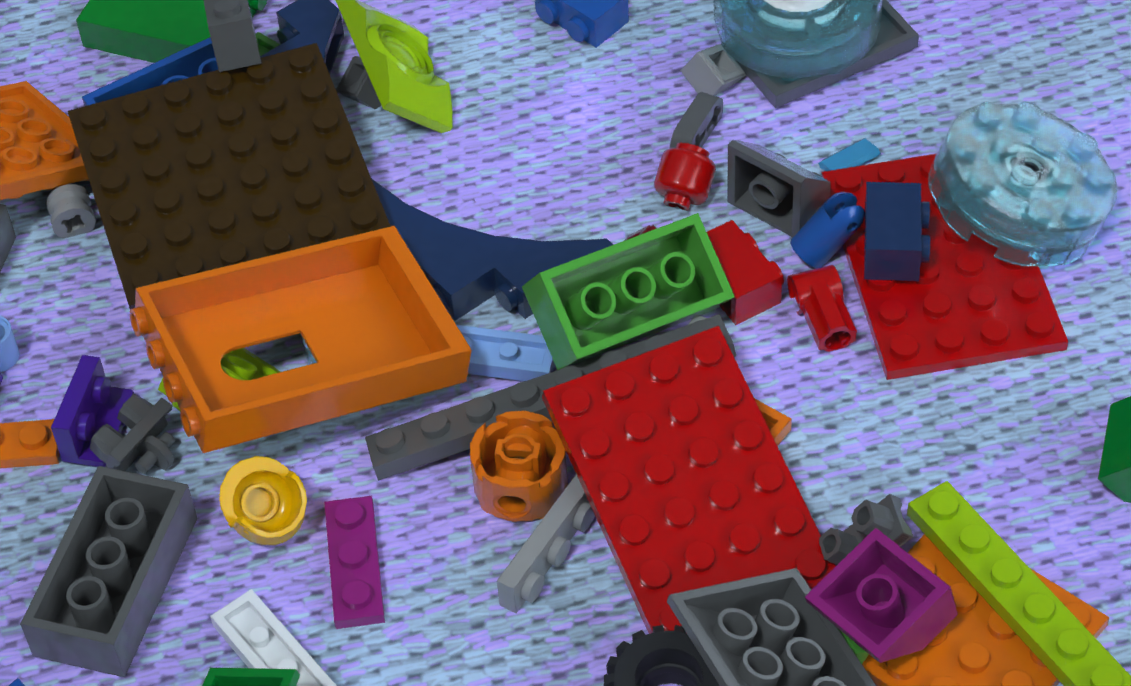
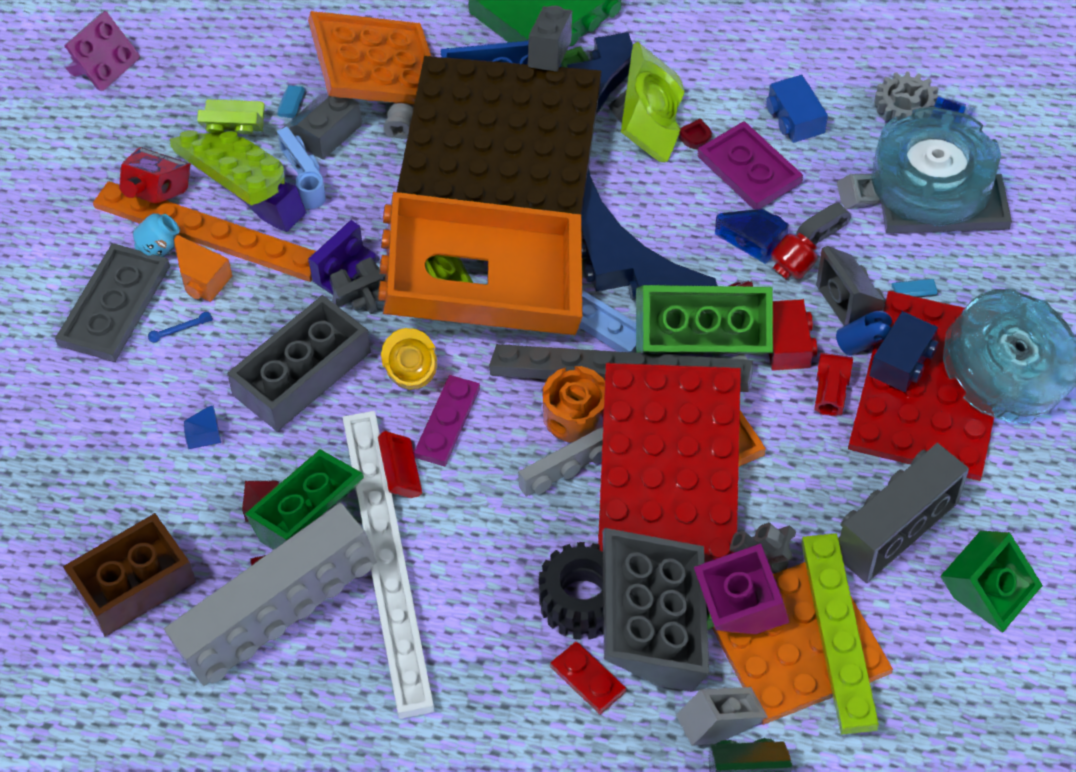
camera: 25 degrees right, 5 degrees up
(325, 644) = (399, 464): none -> red tile
(470, 83) = (695, 134): none -> dark red tile
(562, 92) = (750, 165): none -> magenta plate
(614, 168) = (752, 231): none -> clear blue slope
(1008, 419) = (901, 511): none -> dark grey brick

